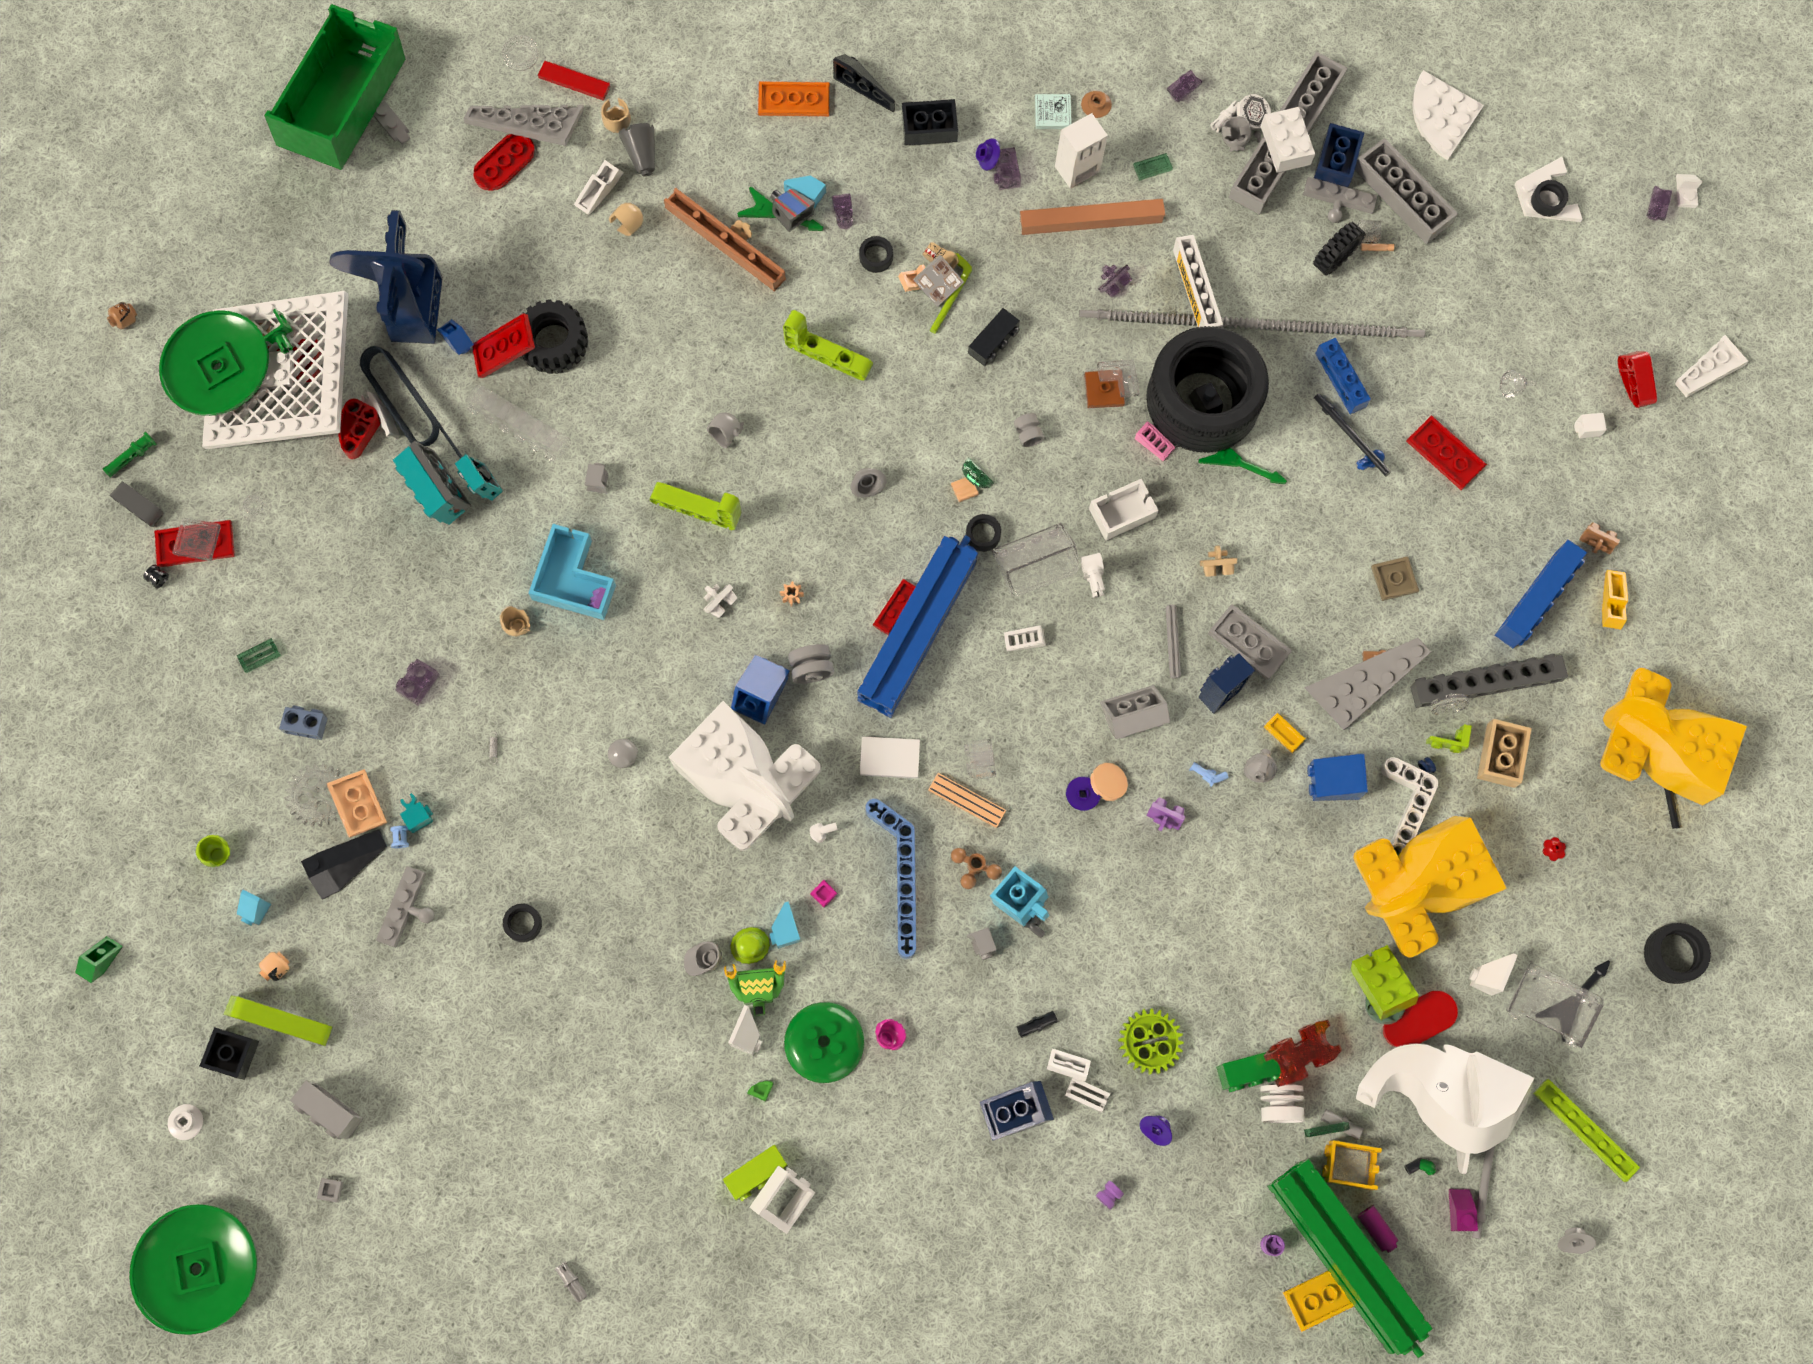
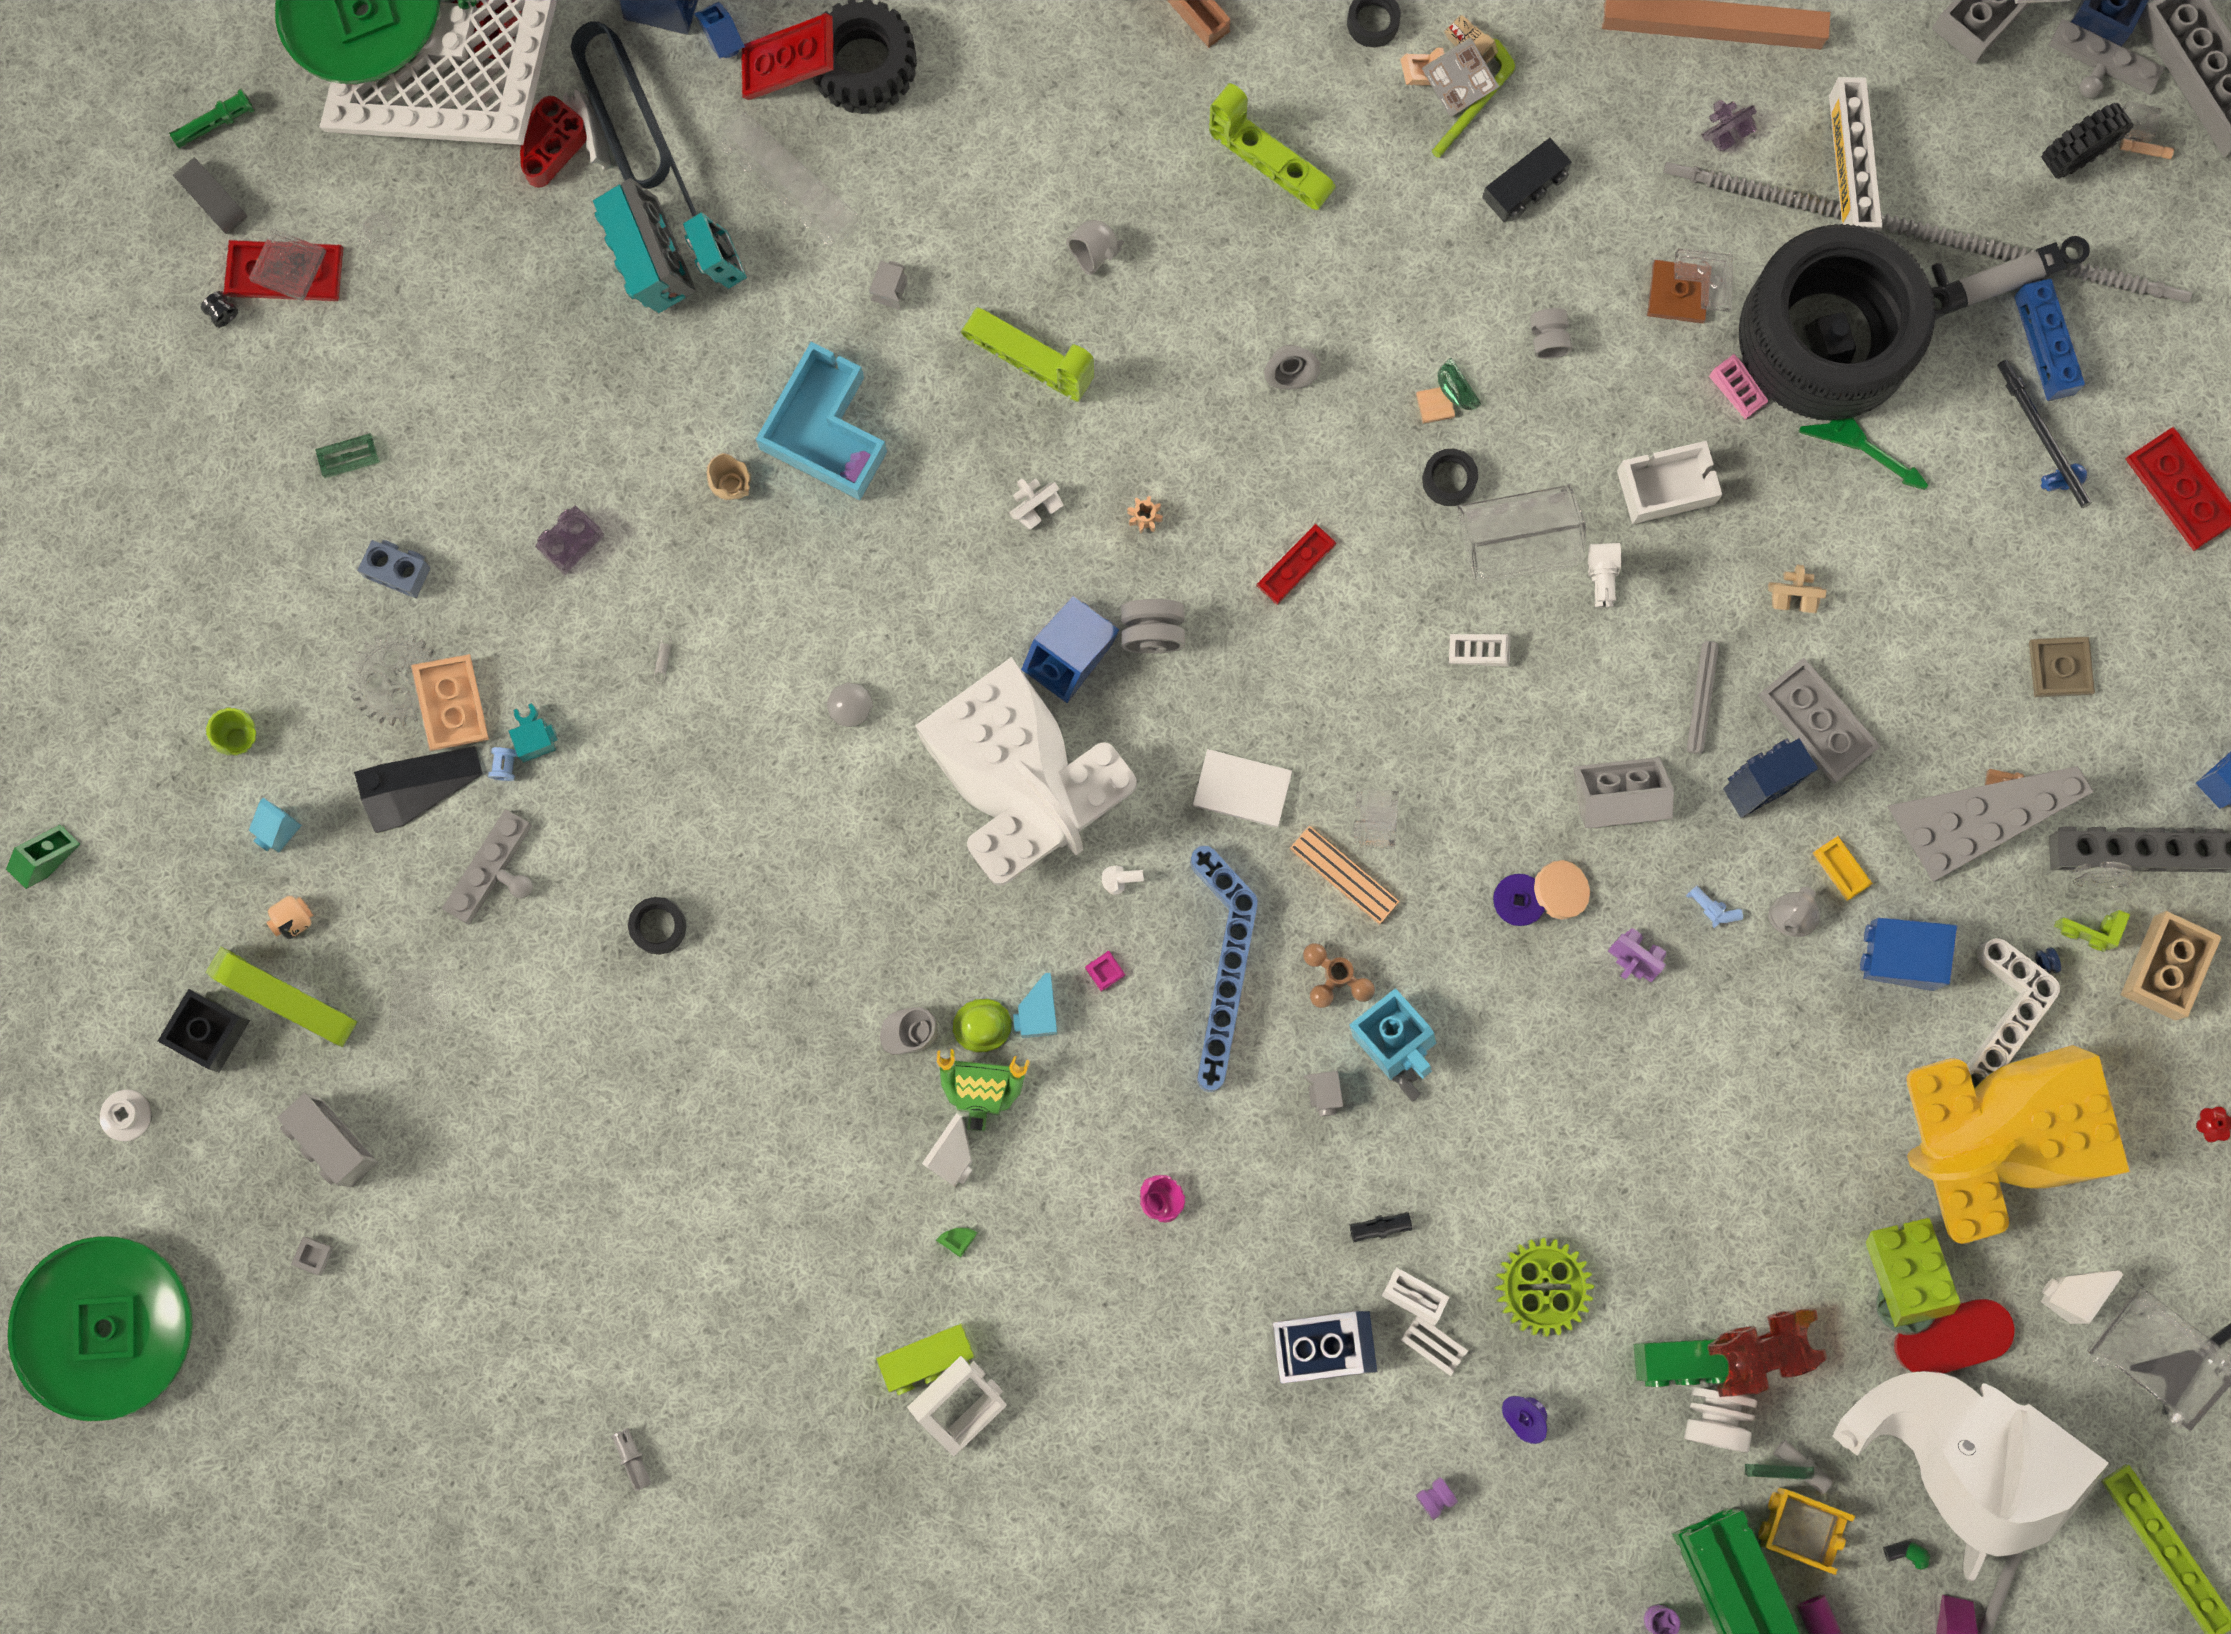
camera: 15 degrees right, 5 degrees up
(829, 1062) = (1057, 1220): green brick -> none
(918, 625) = (1324, 598): blue brick -> none
(1327, 330) = (2036, 266): none -> piece

